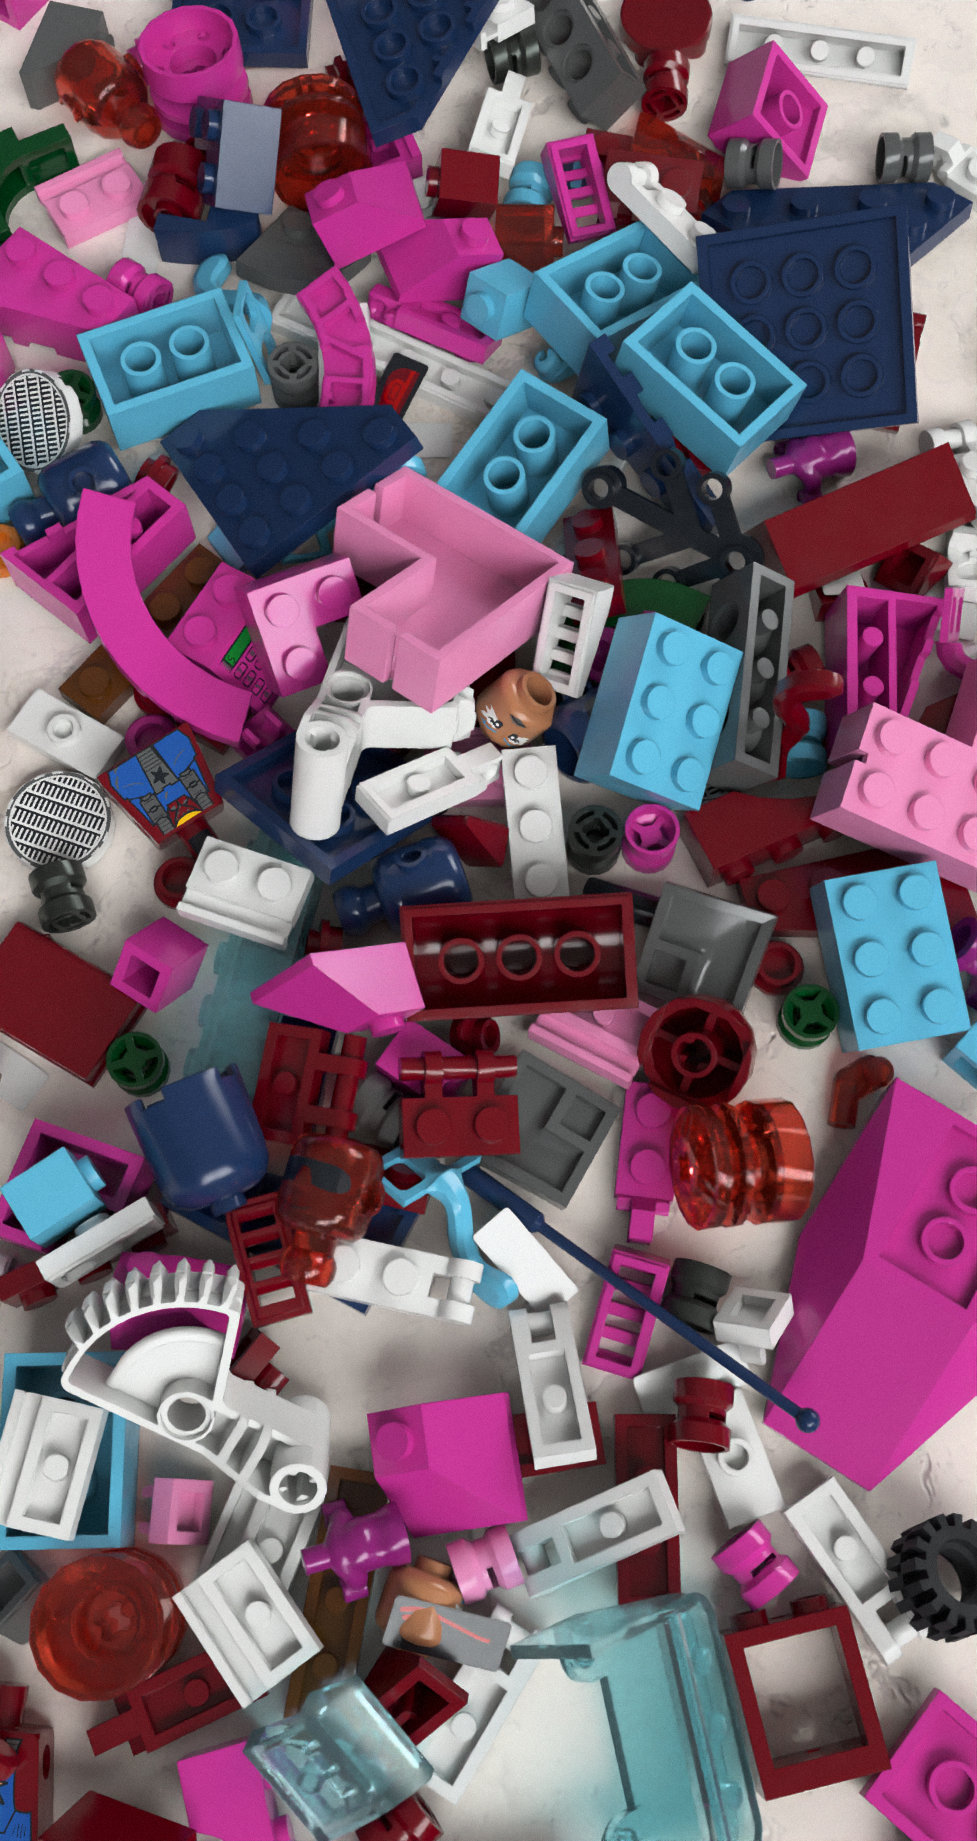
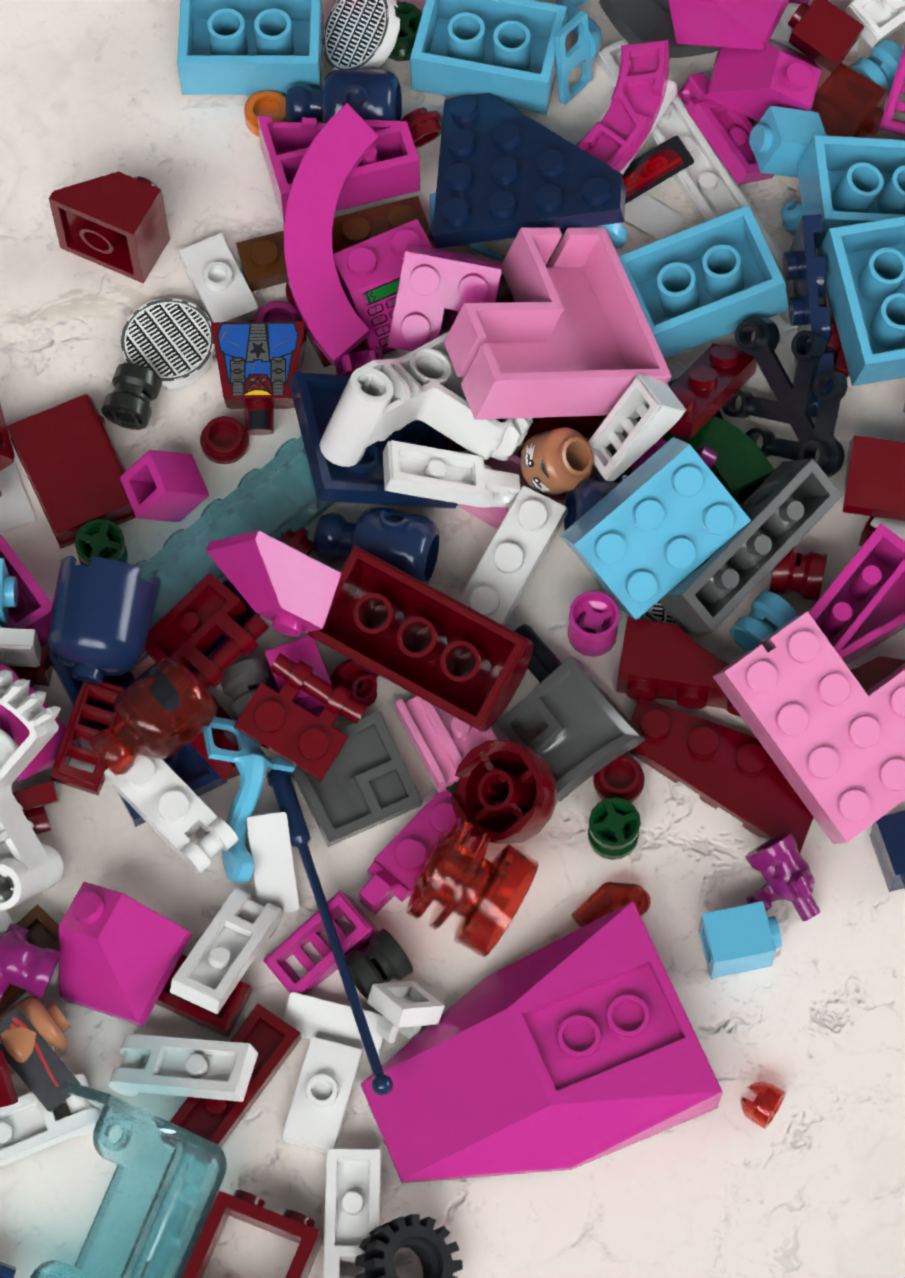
camera: 35 degrees right, 5 degrees down
(245, 893) = (258, 472): white plate -> none
(294, 375) = (581, 107): dark grey wheel -> none
(476, 839) = (458, 540): dark red slope -> none
(484, 1564) = (93, 1040): bright pink wheel -> none
(592, 852) = (549, 609): pearl dark grey wheel -> none
(701, 1415) = (315, 1040): dark red wheel -> none
(745, 1553) = (280, 1169): dark pink wheel -> none
(786, 700) = (757, 576): dark red piece -> none
(889, 956) = (702, 819): medium azure brick -> none

